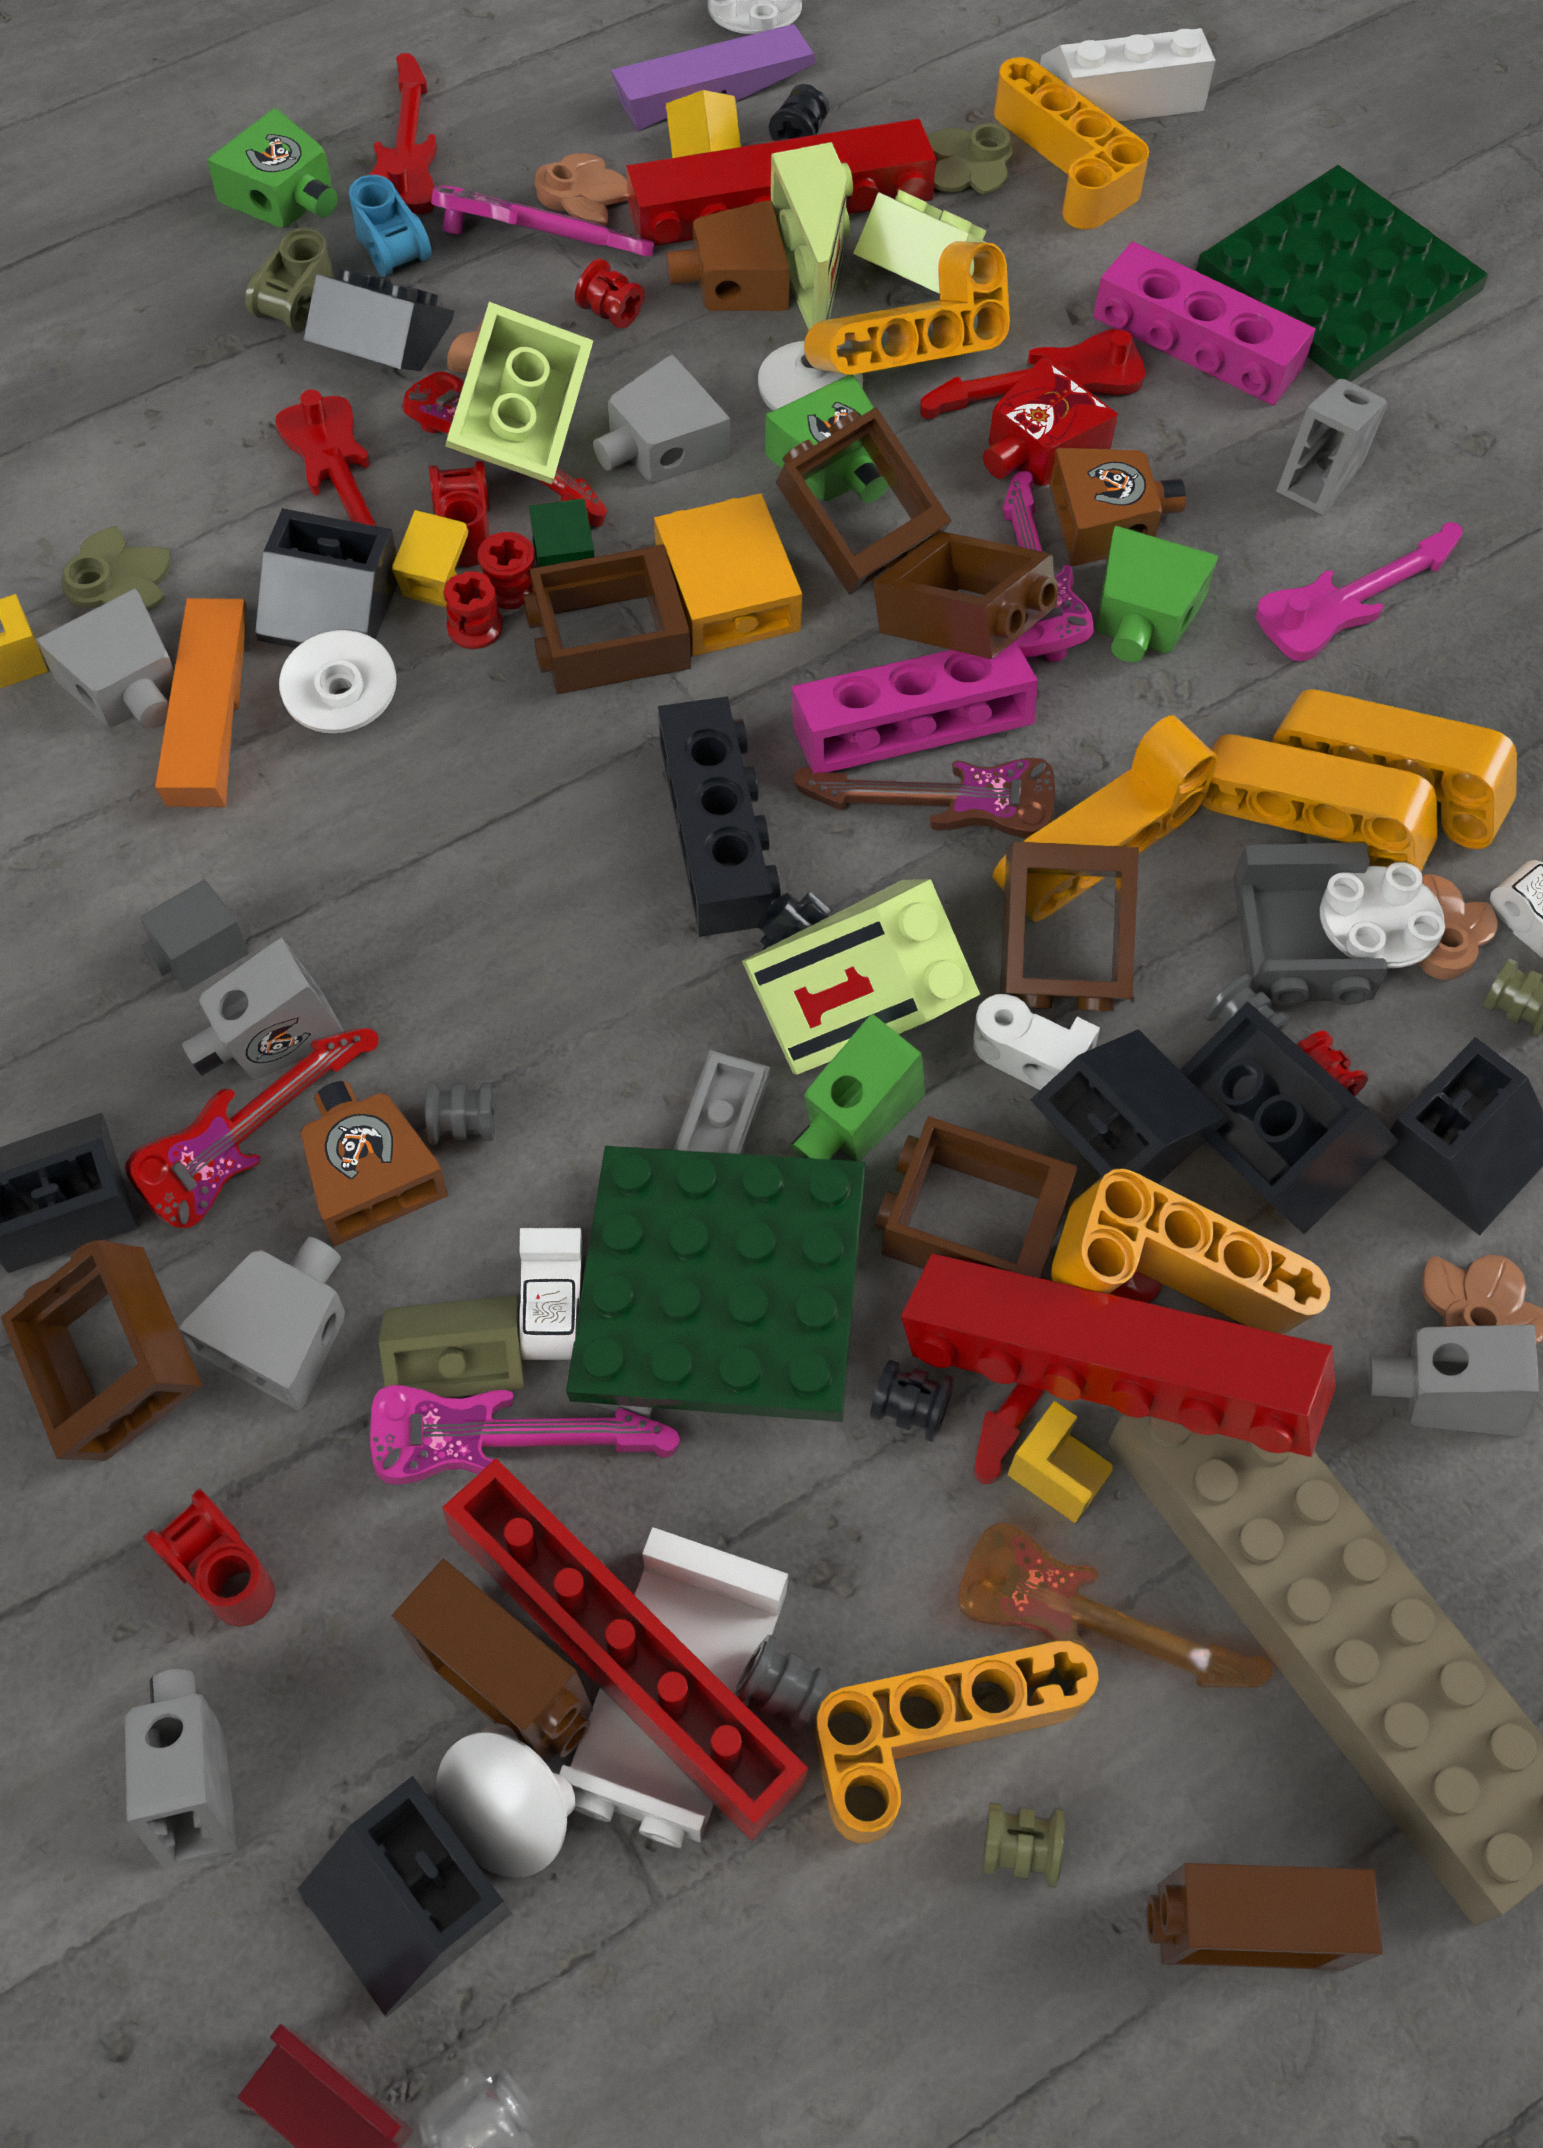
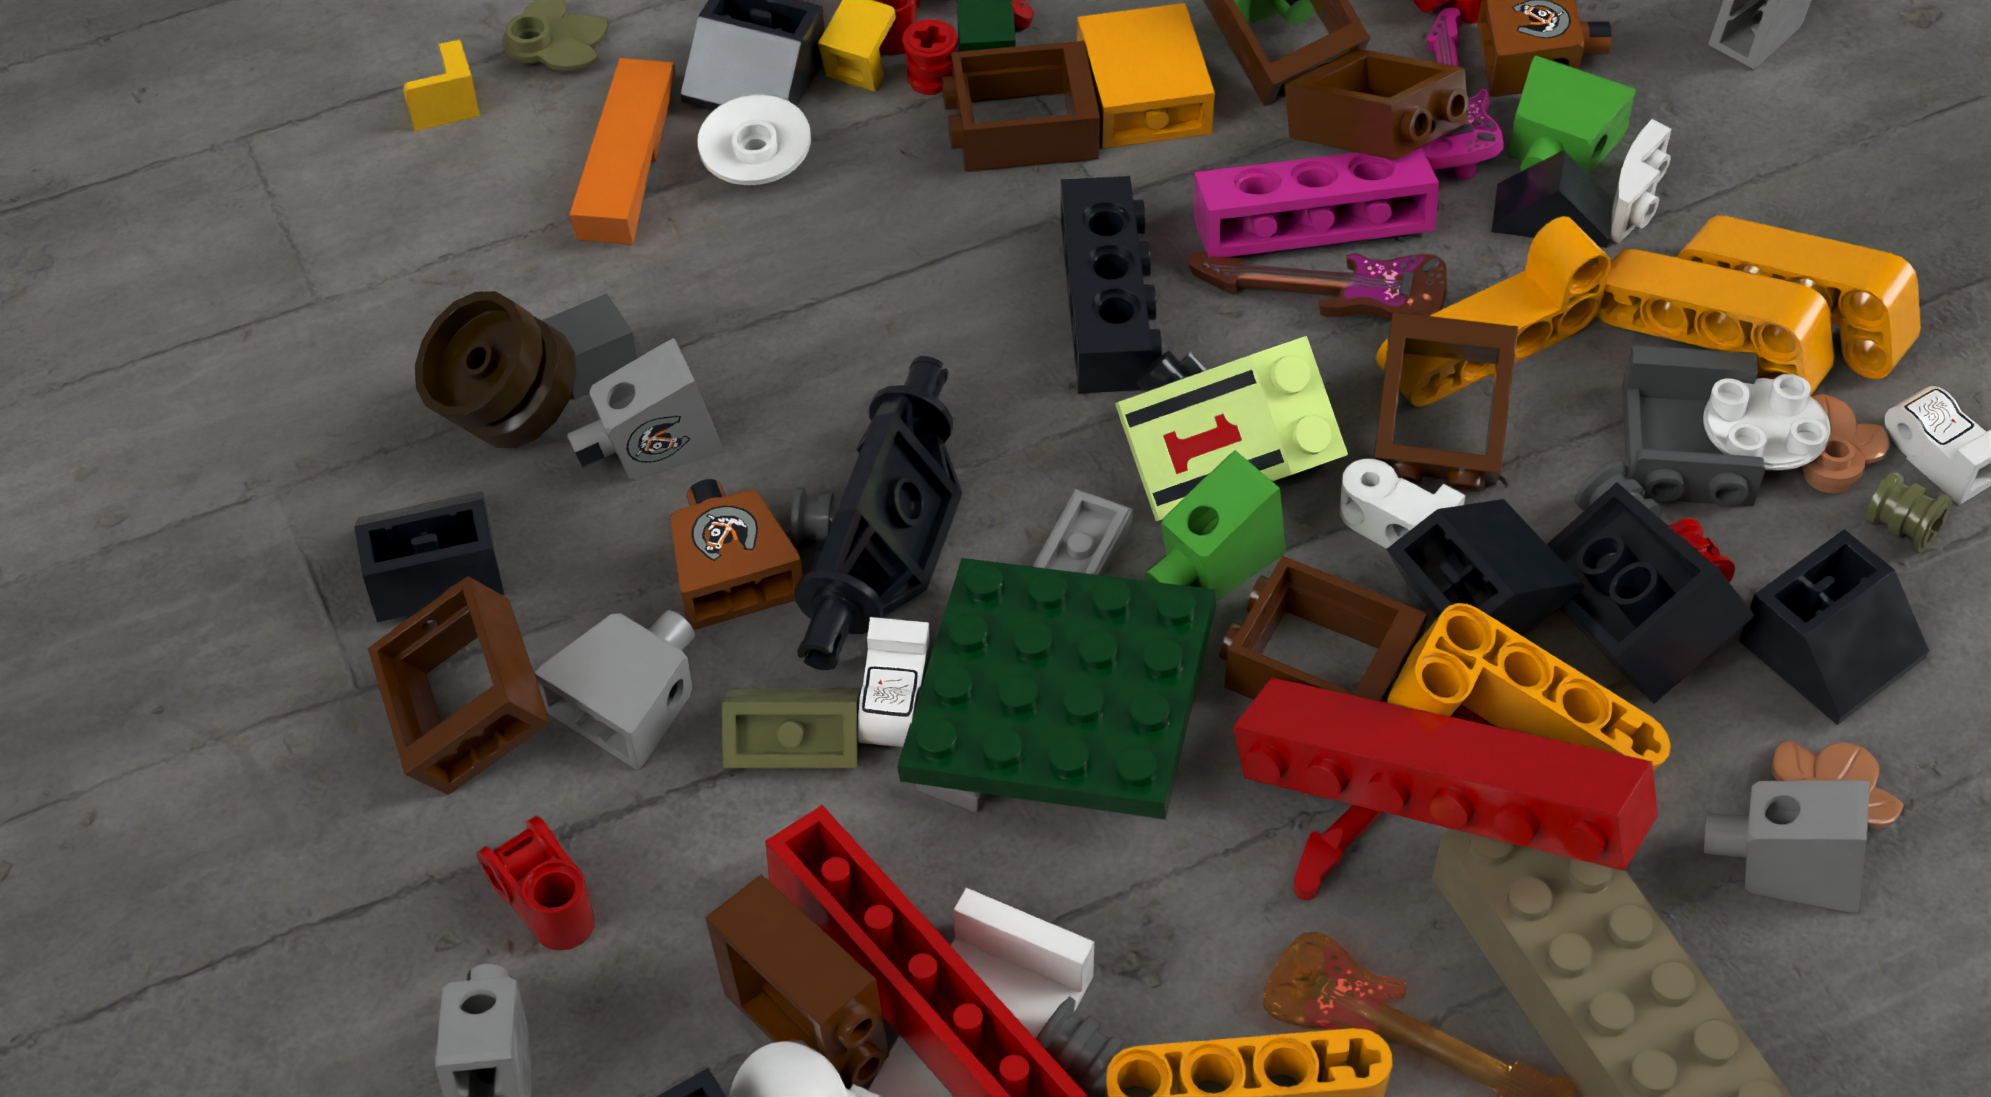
camera: 10 degrees right, 10 degrees down
(97, 982) = (495, 370): none -> dark brown wheel
(113, 662) = (542, 108): light grey torso -> none
(187, 1169) = (560, 543): red piece -> none
(426, 1434) = (755, 792): dark pink piece -> none
(481, 615) = (891, 89): red bush -> none
(526, 1108) = (888, 518): none -> black plate
(912, 1399) = (1238, 811): black bush -> none
(1059, 1465) = (1376, 888): yellow panel -> none
(1146, 684) = (1548, 192): none -> black slope
(1225, 671) = (1638, 180): none -> white slope
(1308, 617) = (1729, 157): dark pink piece -> none

